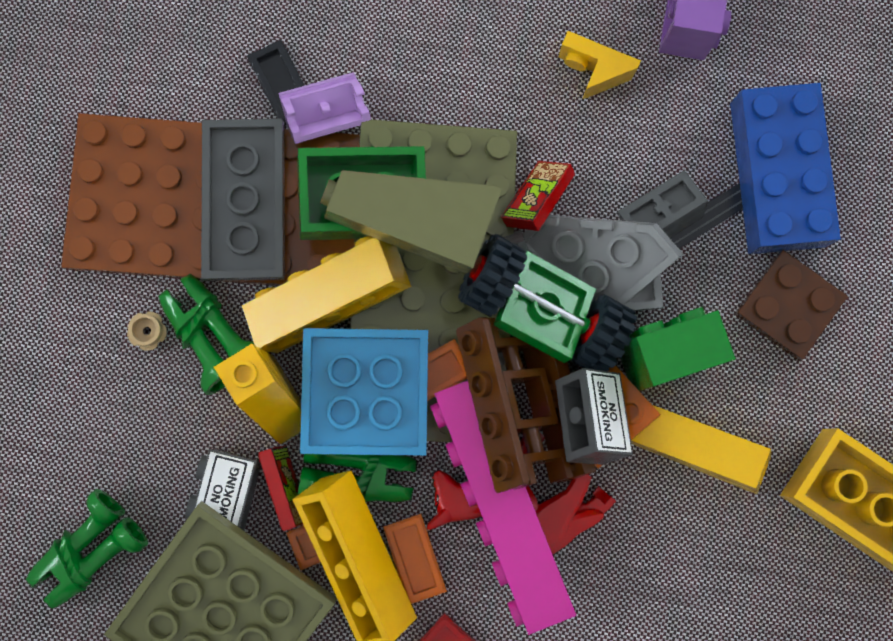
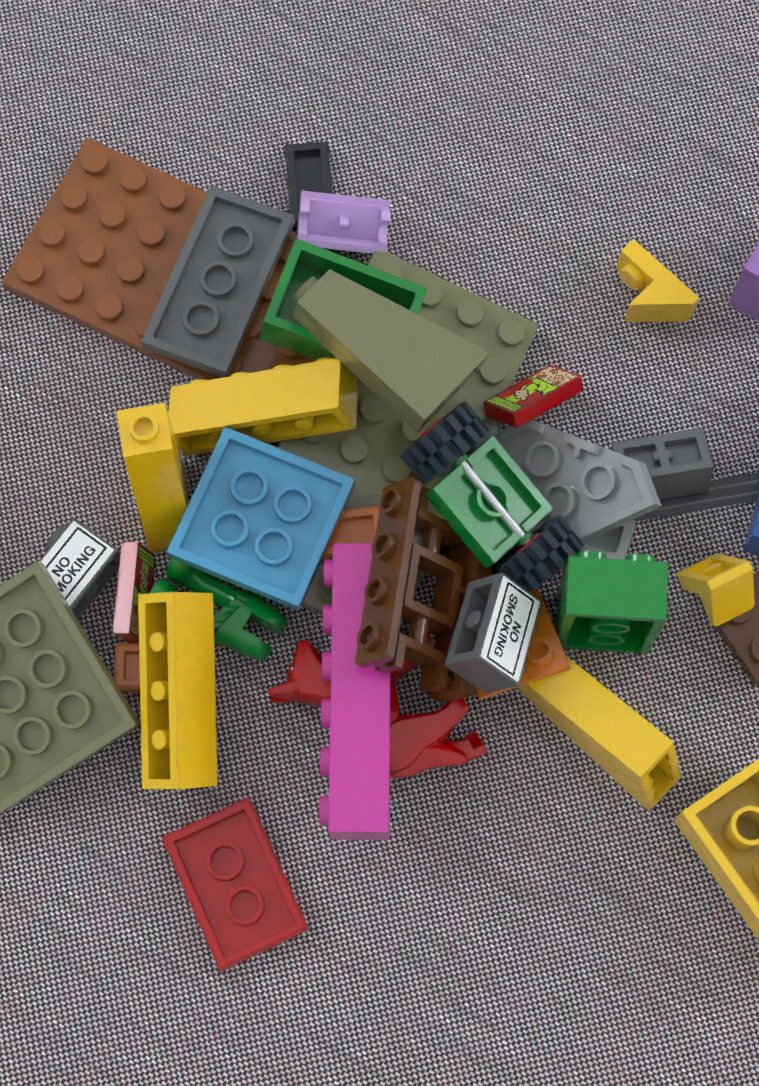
camera: 25 degrees right, 10 degrees down
(136, 330) = (59, 368): tan plate -> none
(191, 327) = (110, 392): green piece -> none
(415, 558) = (242, 727): orange tile -> none
(746, 292) = (722, 584): none -> yellow slope

